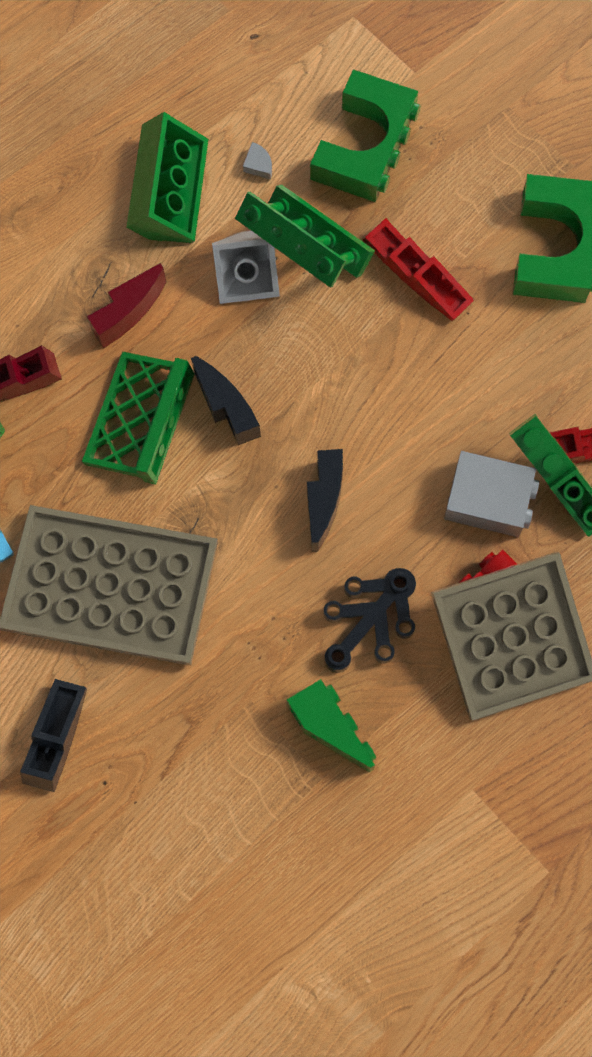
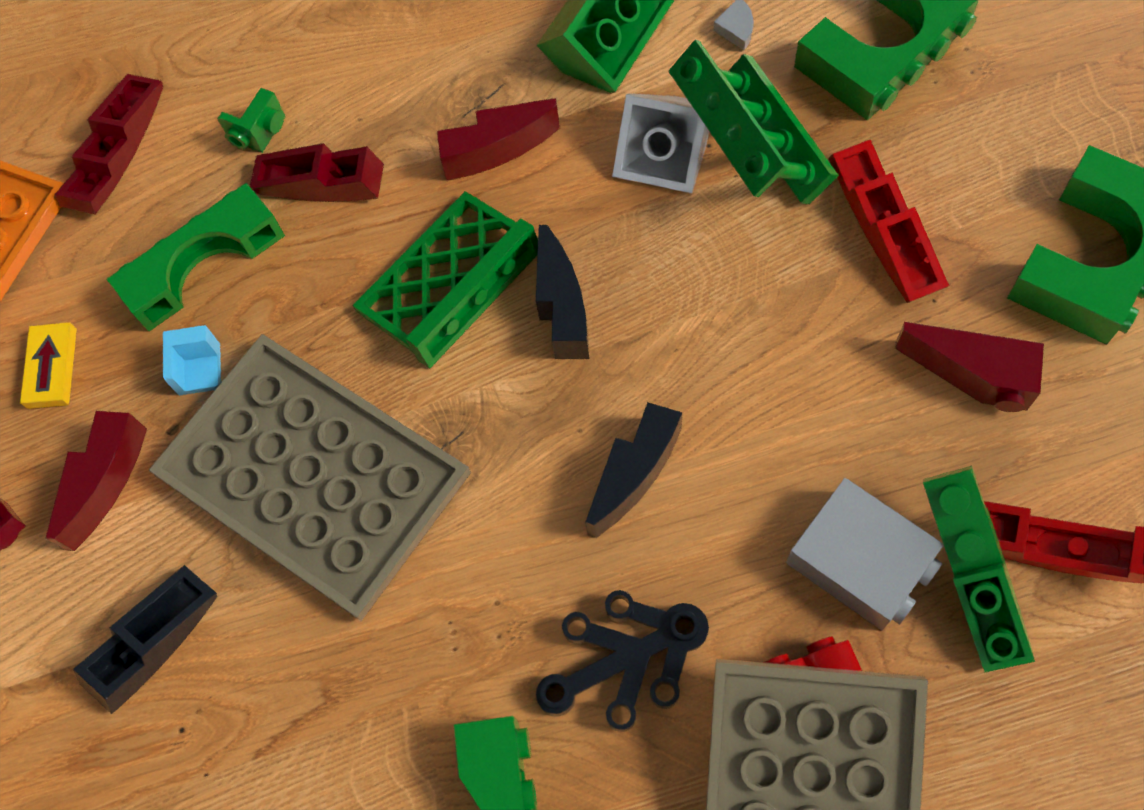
camera: 30 degrees right, 5 degrees down
(513, 346) = (981, 365): none -> dark red slope

